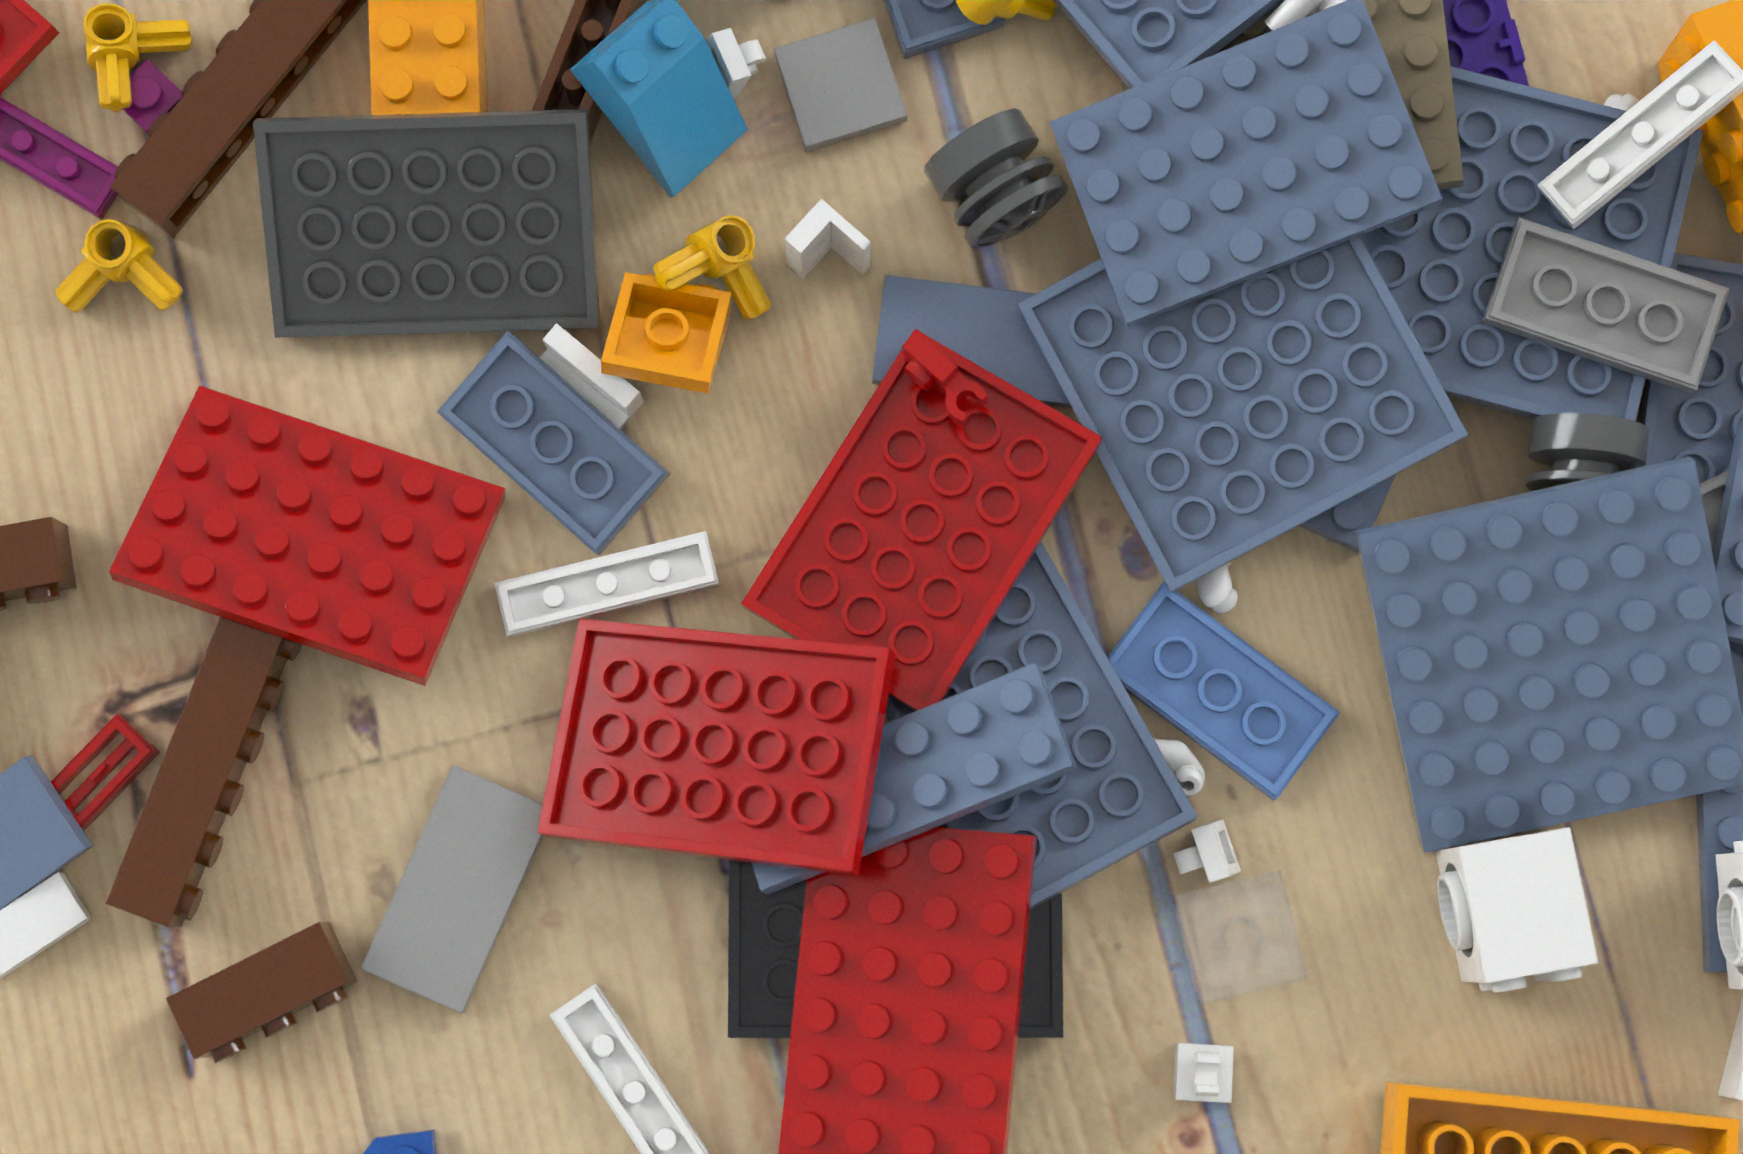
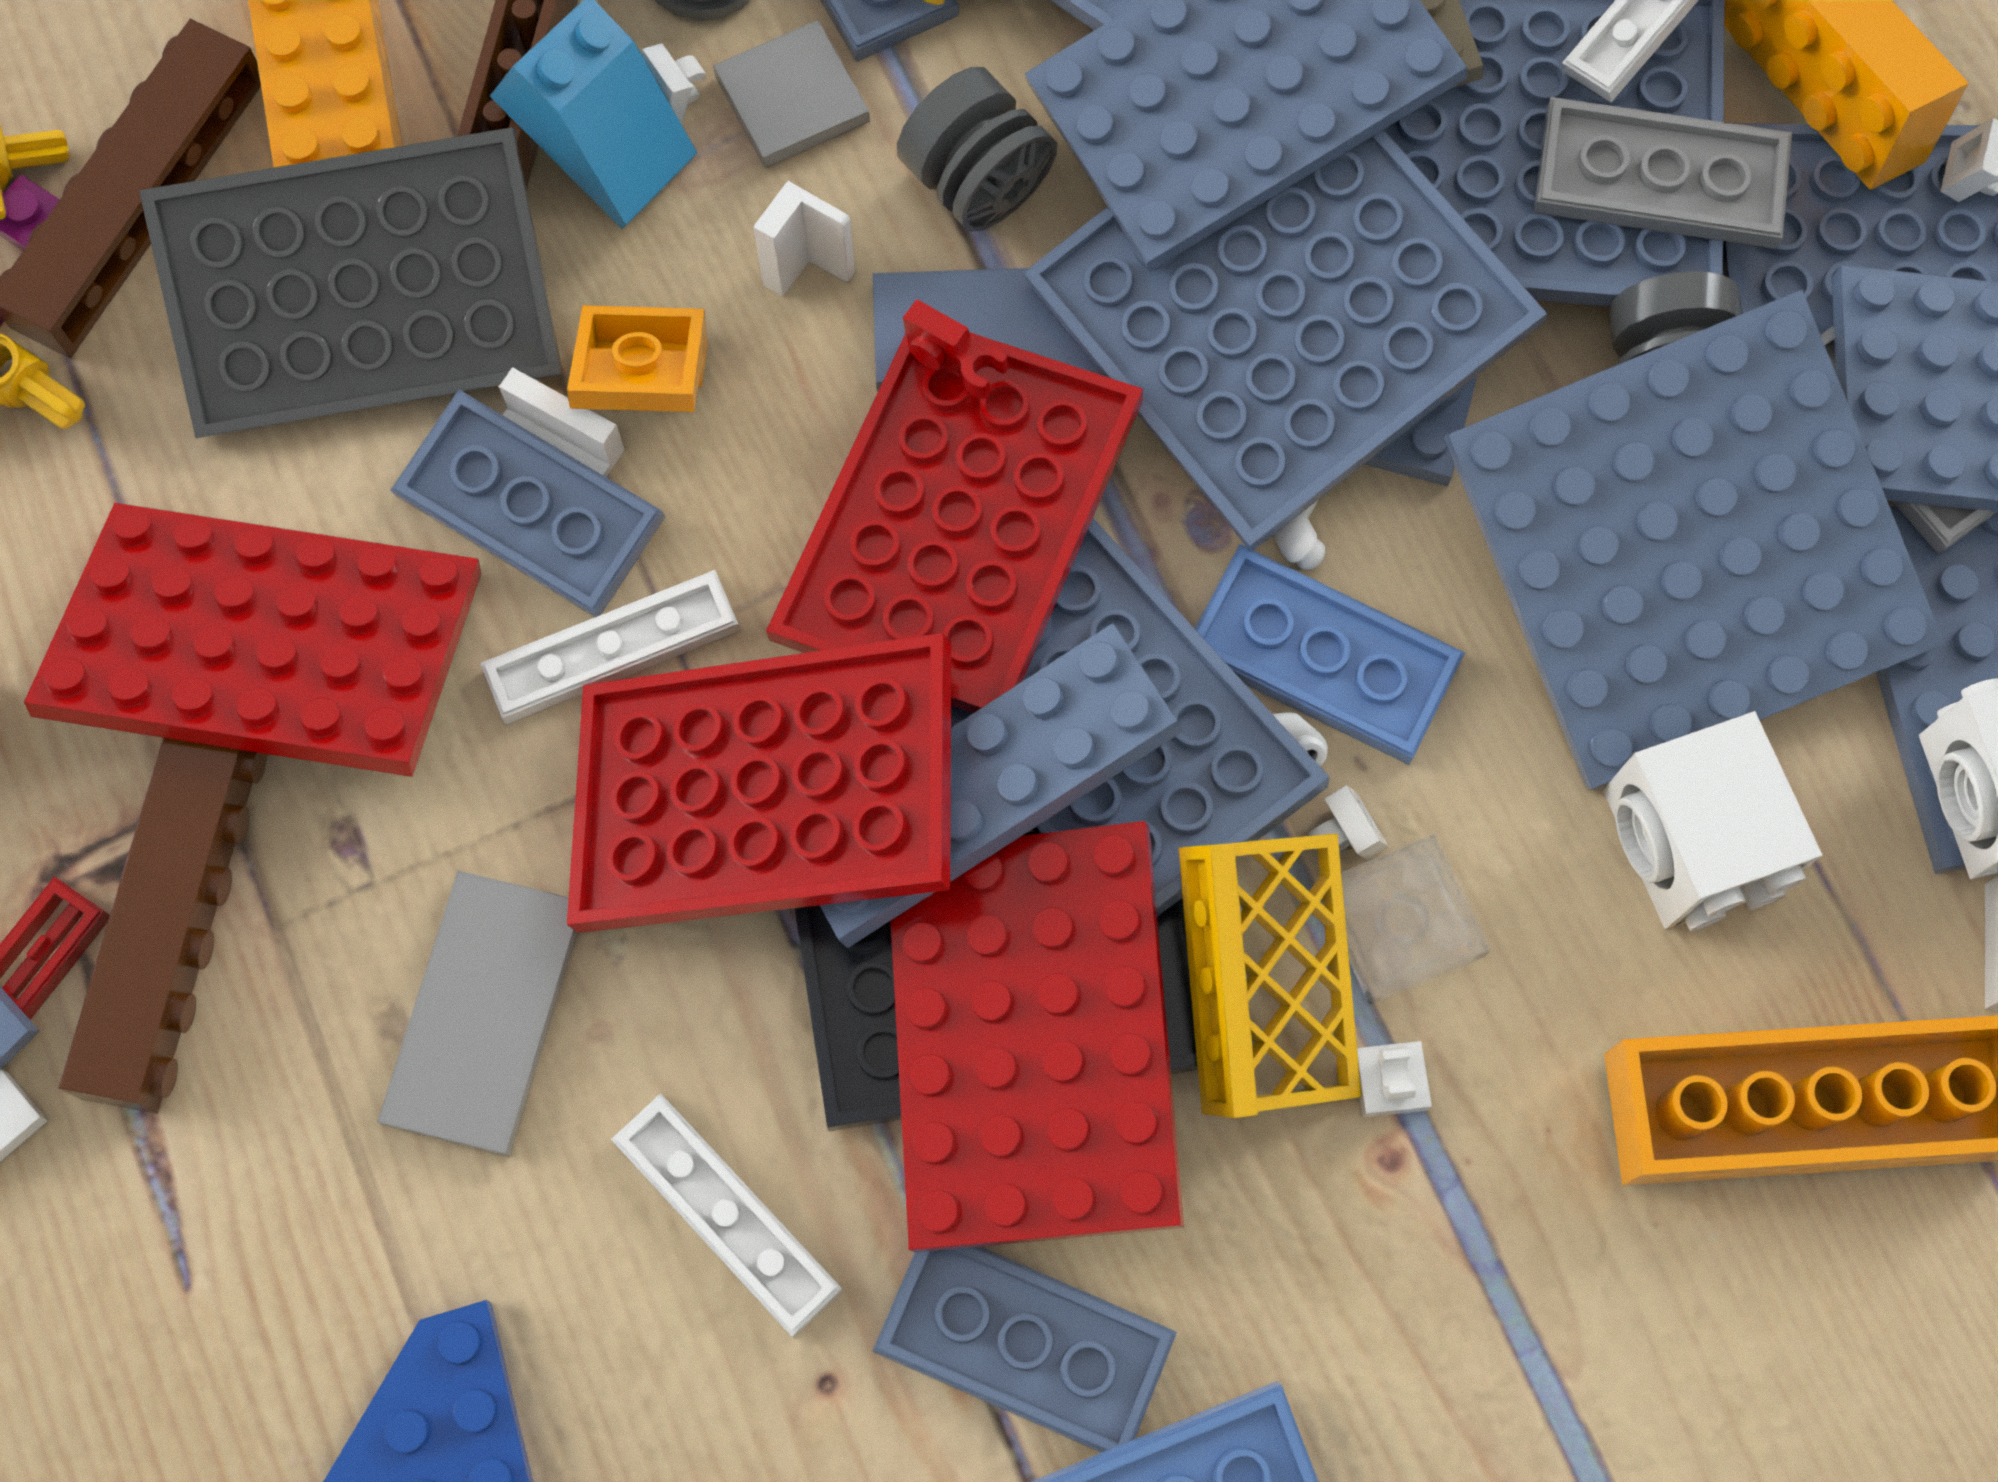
camera: 10 degrees left, 10 degrees down
(263, 992) = (261, 1167): reddish brown brick -> none
(705, 258) = (686, 273): yellow axle -> none
(1073, 967) = (1220, 968): none -> yellow fence

